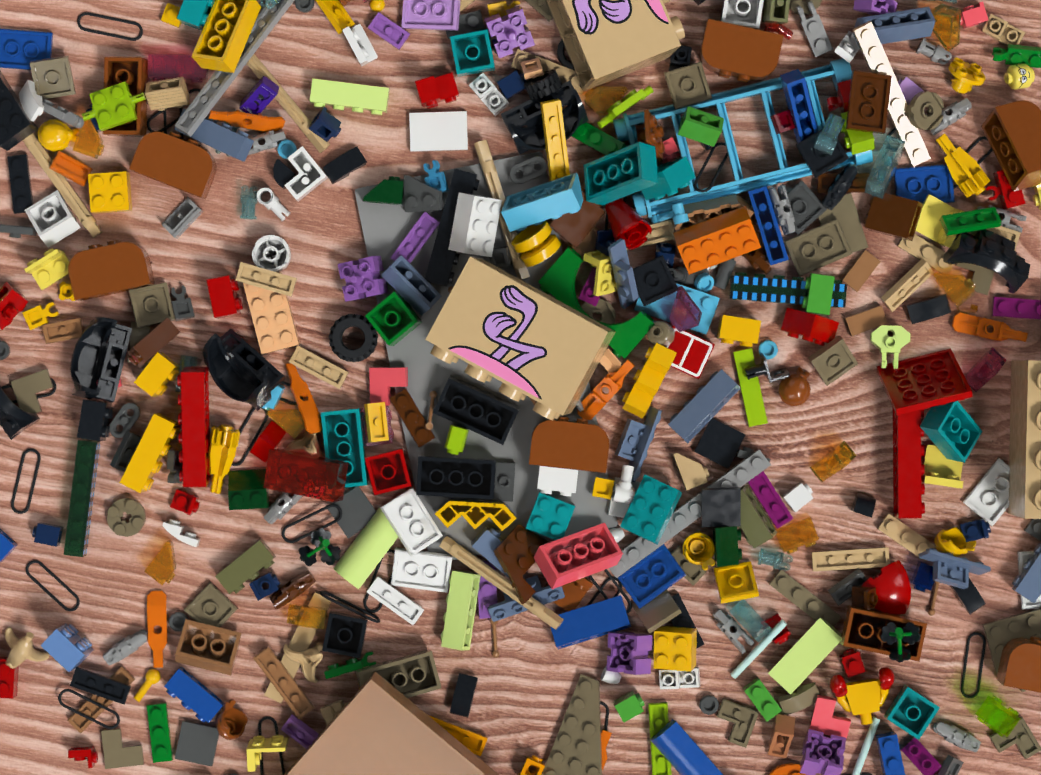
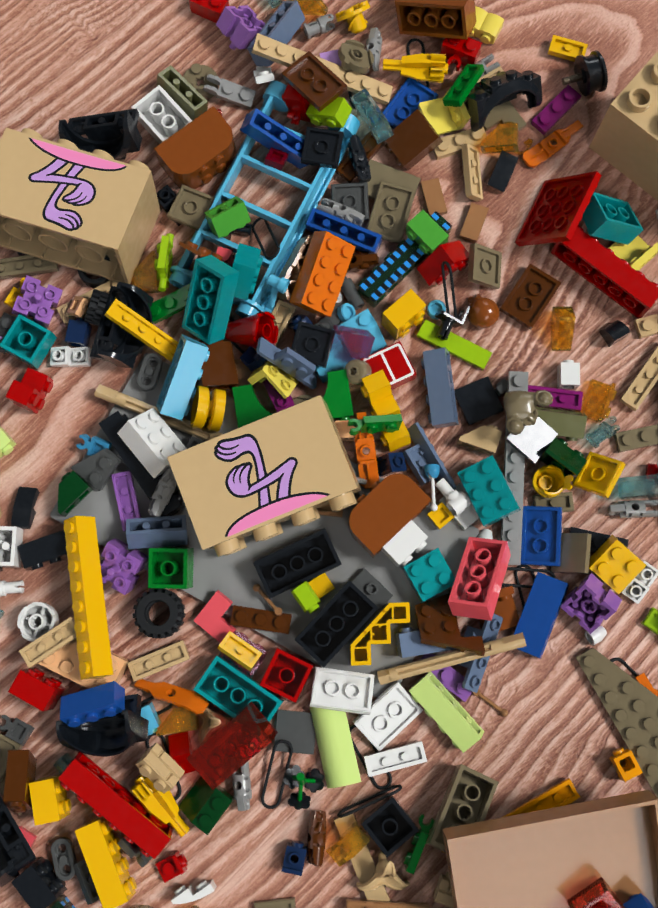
camera: 50 degrees left, 10 degrees down
(246, 436) = (159, 768): none -> tan brick
(246, 567) = (266, 861): olive brick -> none
(249, 349) = (92, 704): none -> blue brick
(321, 277) = (88, 598): none -> yellow brick
(332, 214) = (42, 550): none -> black brick
(438, 131) = (64, 416): white tile -> none
(443, 266) = (162, 493): none -> light grey hinge
(463, 695) = (518, 768): black slope -> none
(475, 442) = (321, 585): none -> yellow tile
(612, 417) = (391, 463): none -> dark blue bracket
(629, 705) = (634, 639): bright green brick -> none
(630, 382) = (375, 424): none -> green plate
(630, 454) = (432, 471): none -> hinge
(733, 483) = (521, 408): none -> dark tan head
(782, 350) = (452, 288): none -> black piece
(828, 137) = (315, 132): clear light blue piece -> none
(839, 415) = (530, 296): none -> reddish brown plate
(889, 344) = (504, 214): yellowish green hinge -> none
(985, 369) = (580, 160): clear pink slope -> none

